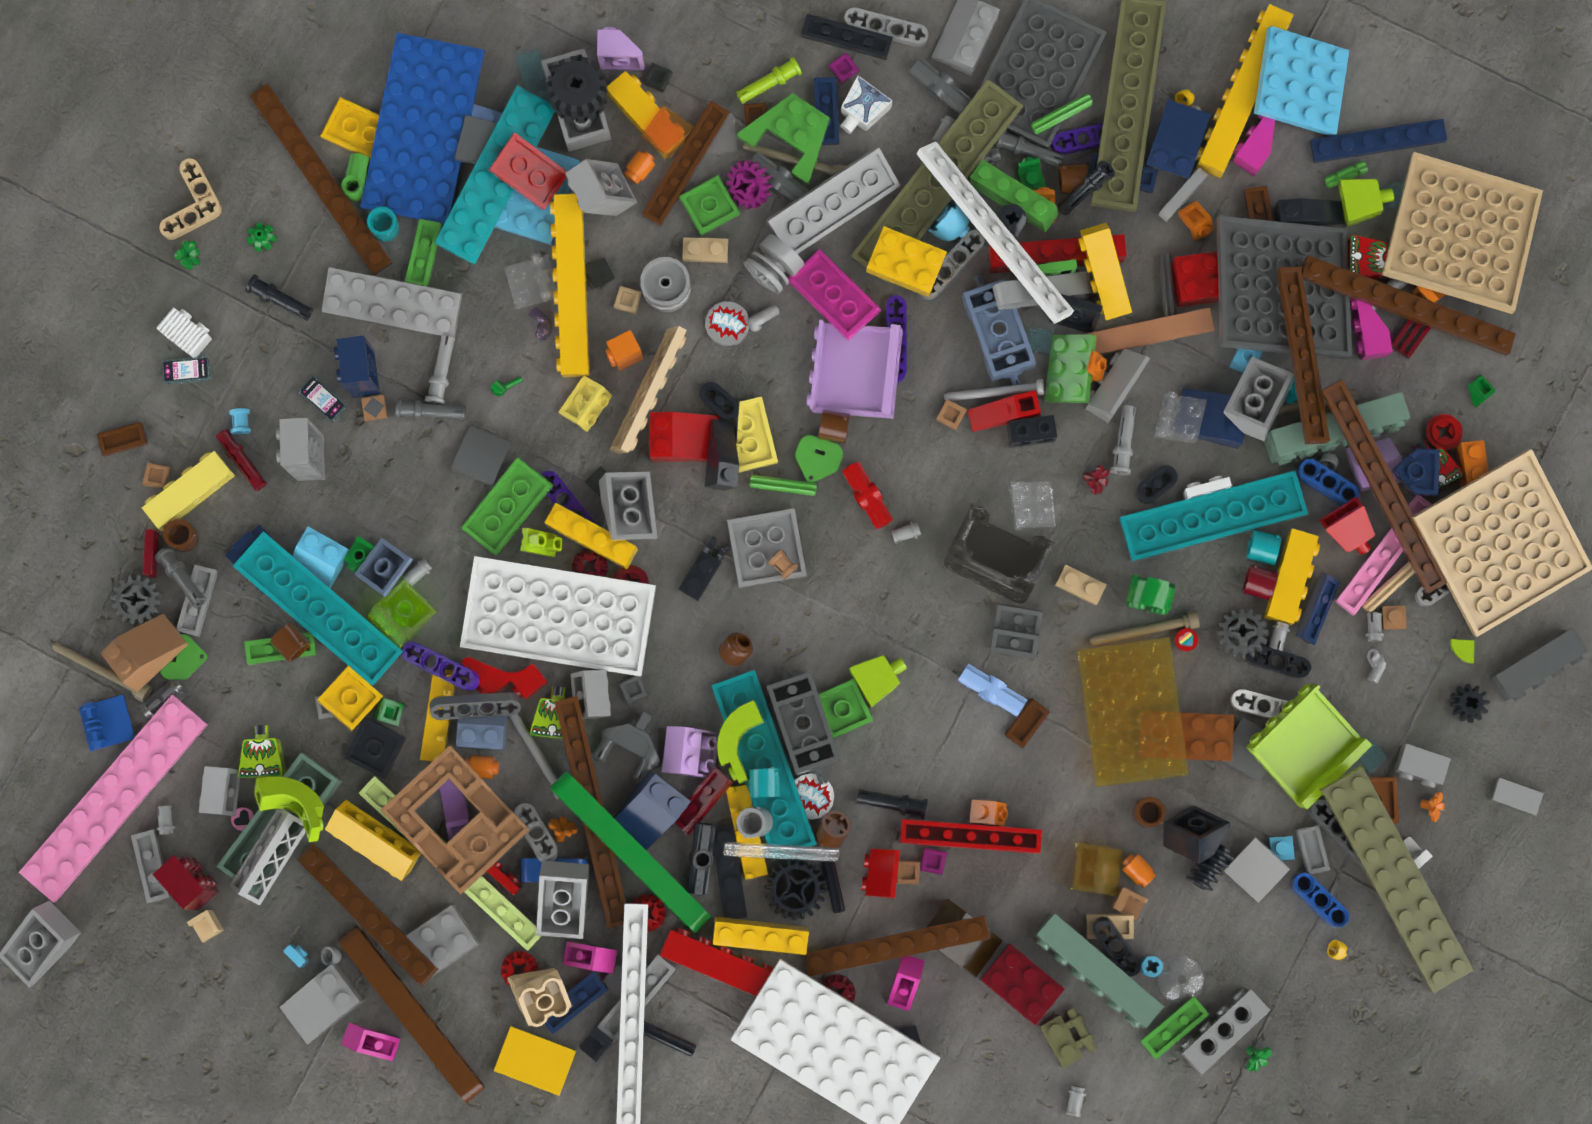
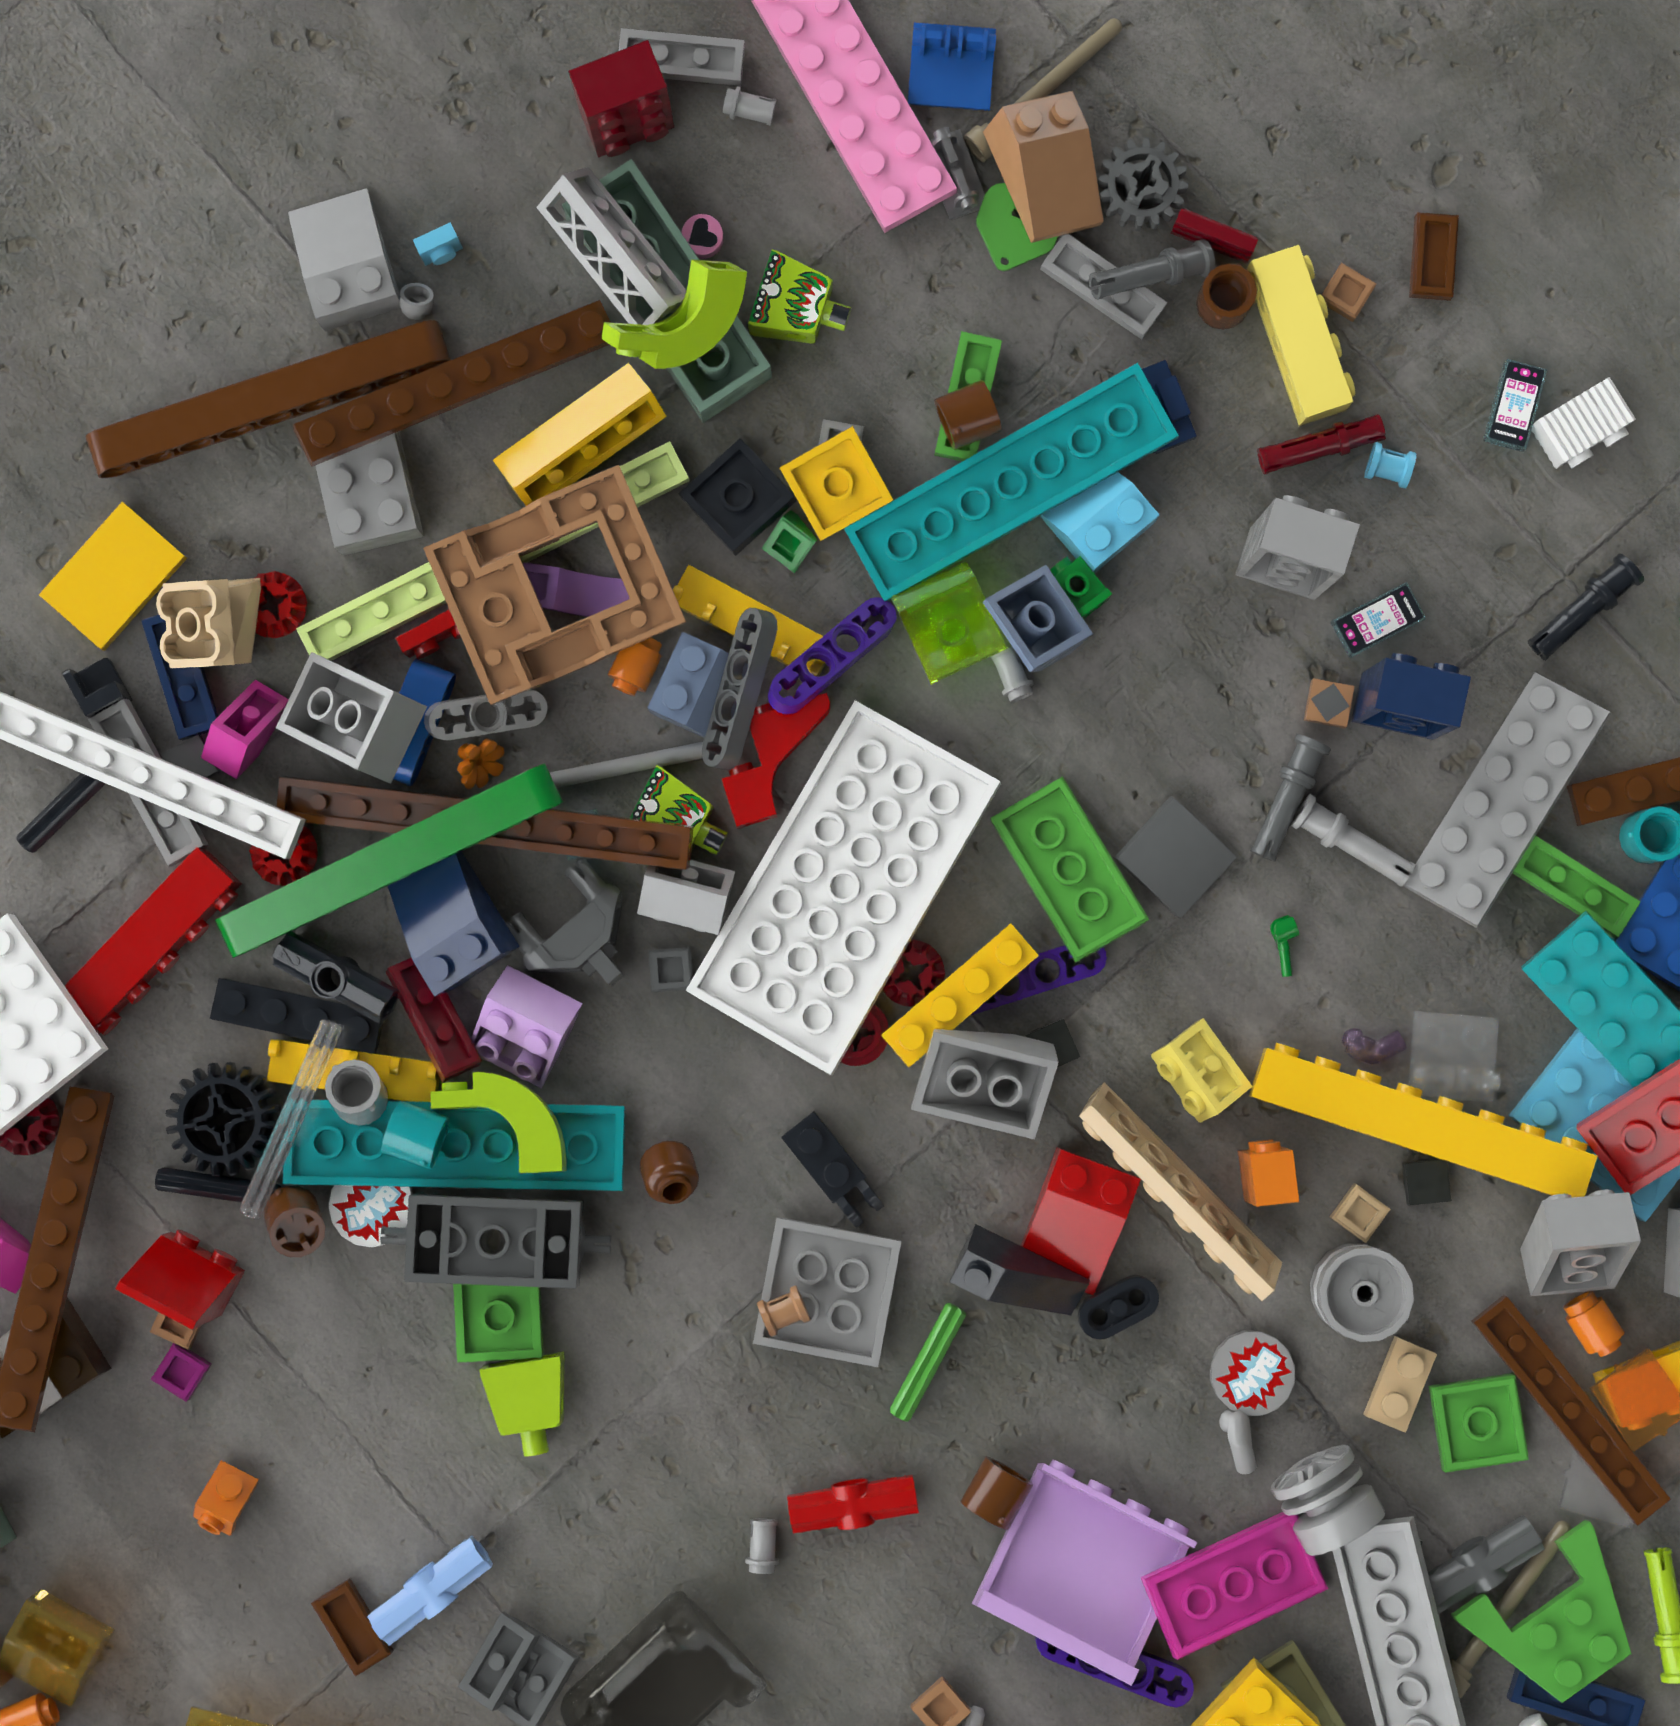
camera: 110 degrees right, 5 degrees up
(206, 925) = (546, 115): tan panel -> none
(219, 791) = (761, 210): light grey brick -> none
(370, 1041) = (248, 315): dark pink slope -> none
(540, 542) = (982, 903): lime hips -> none
(749, 172) = (1512, 1513): magenta gear -> none
(753, 112) = (1621, 1565): reddish brown tile -> none
(754, 436) = (1033, 1345): light yellow wing -> none
(760, 935) = (164, 1029): yellow brick -> none
(816, 464) = (943, 1433): bright green piece -> none
(903, 804) = (294, 1358): black pin -> none
(970, 836) = (190, 1455): red brick -> none

